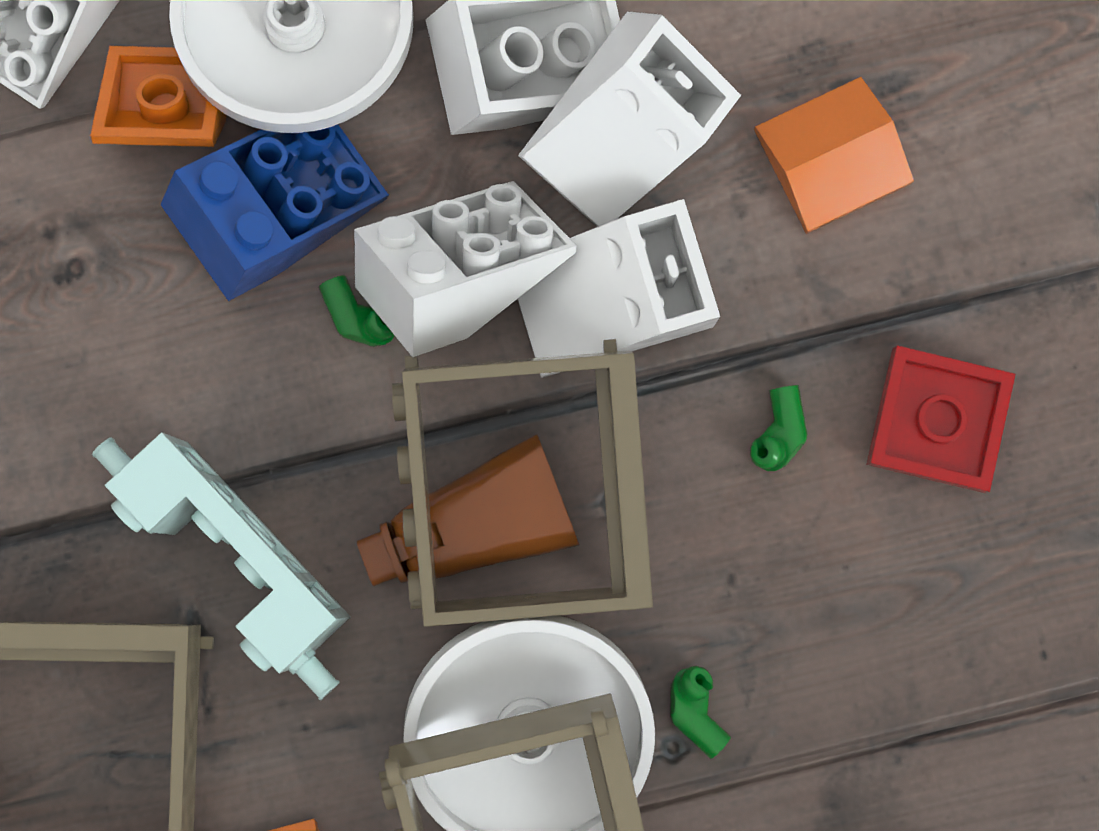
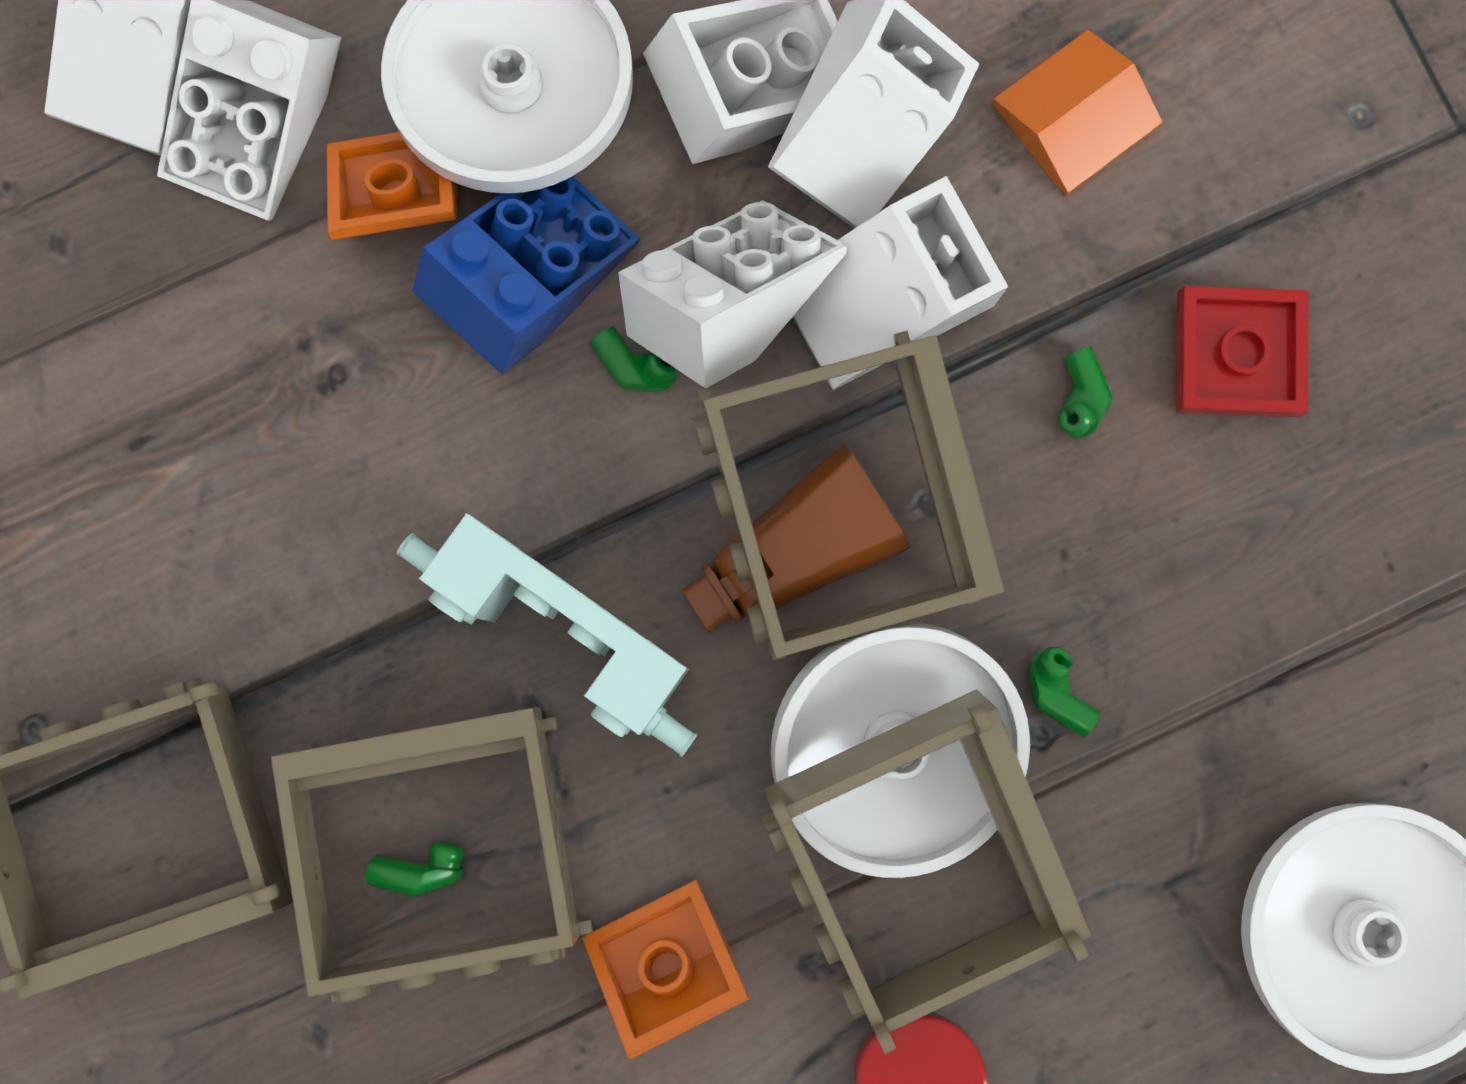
camera: 15 degrees left, 0 degrees up
(53, 763) = (417, 878): none -> green arm

